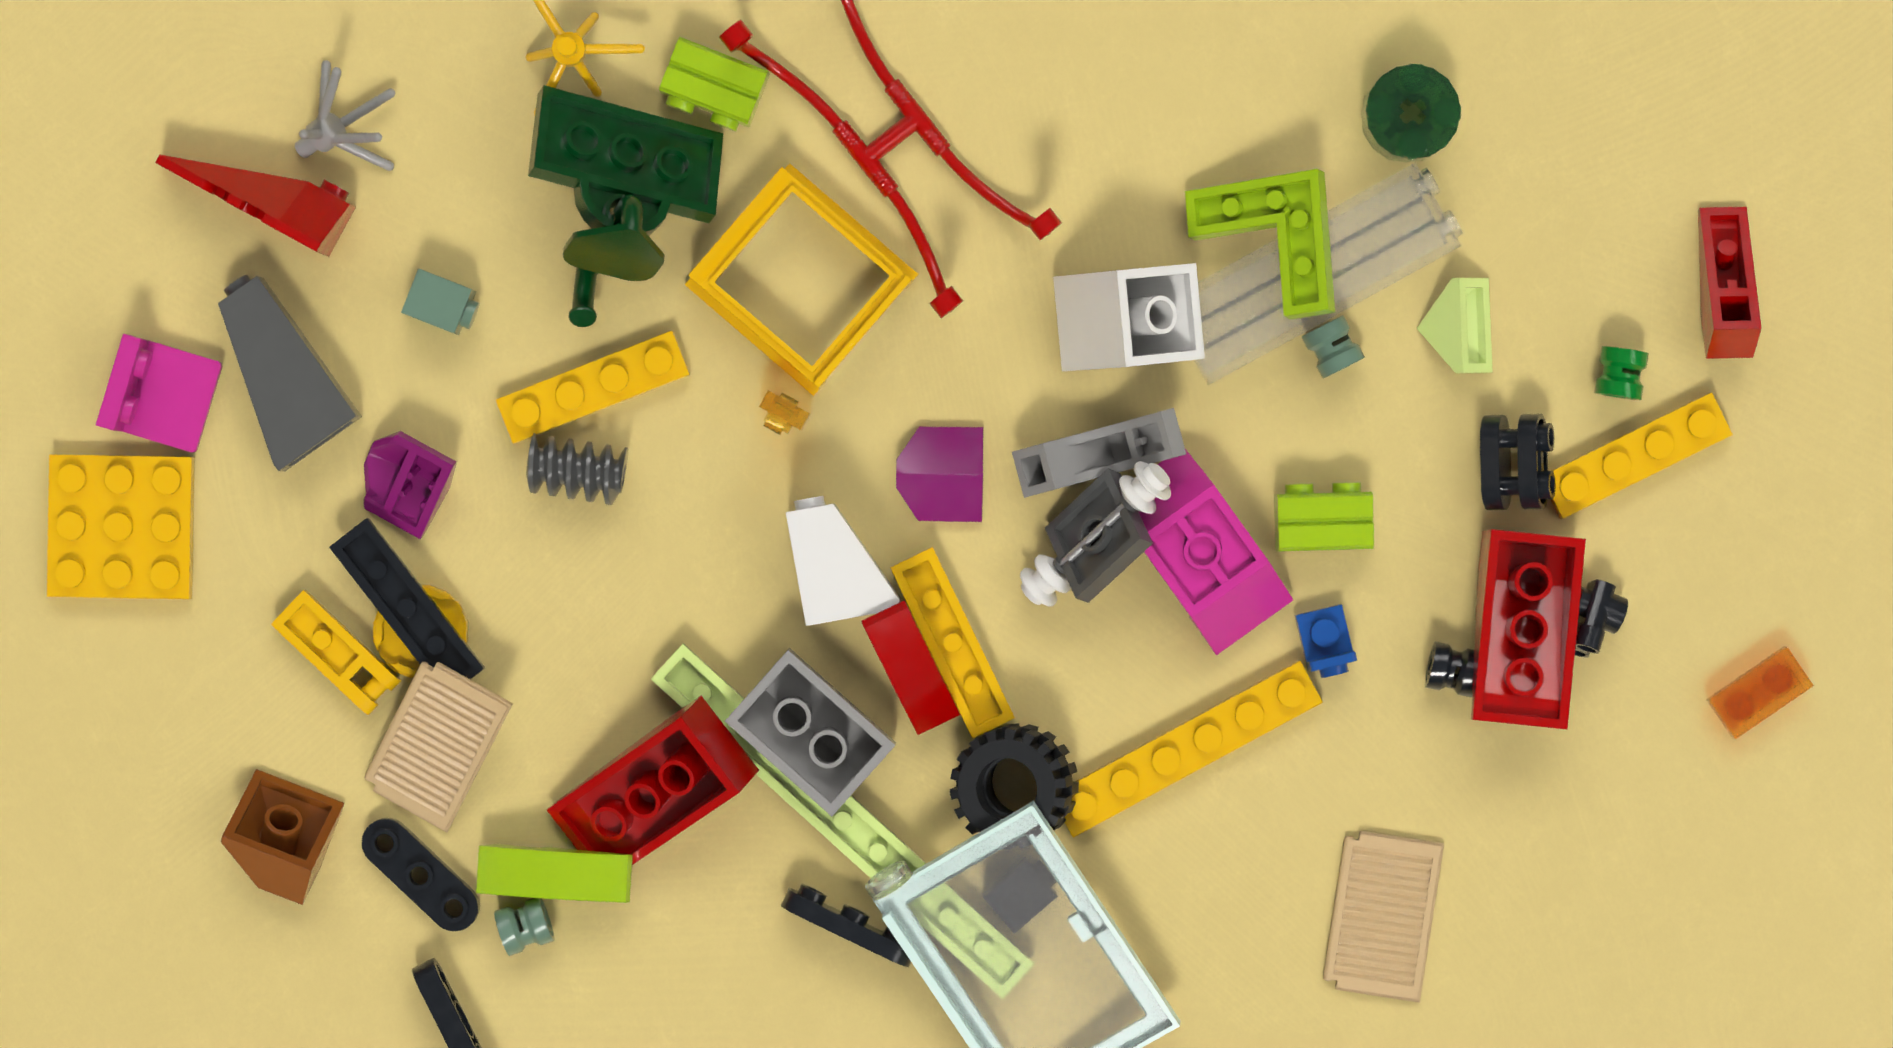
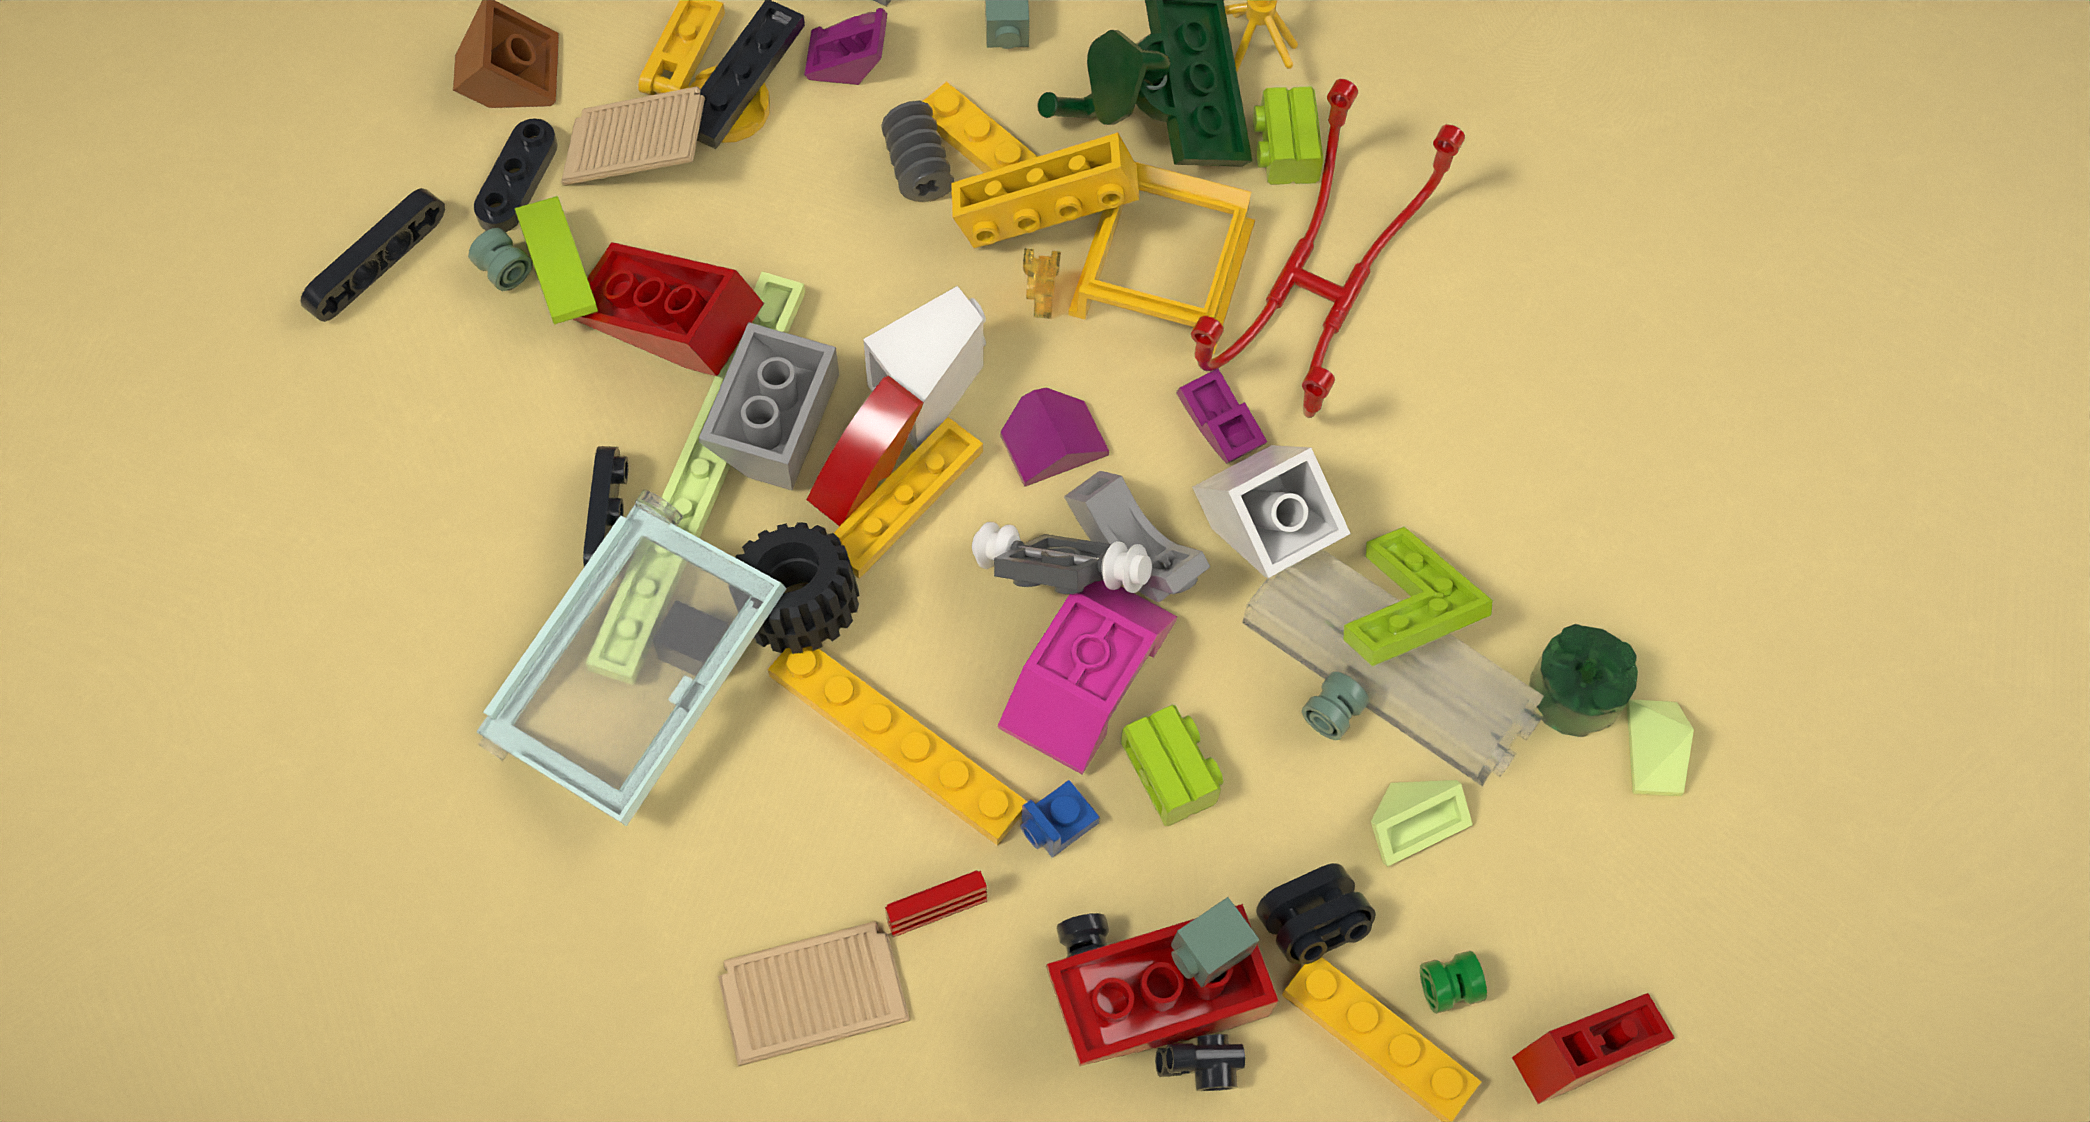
camera: 60 degrees right, 25 degrees down
(699, 373) = (1045, 190): none -> yellow brick
(998, 305) = (1219, 416): none -> magenta slope
(1359, 781) = (936, 903): none -> red tile
(1491, 74) = (1658, 747): none -> yellowish green slope
(1523, 577) = (1213, 943): none -> sand green brick

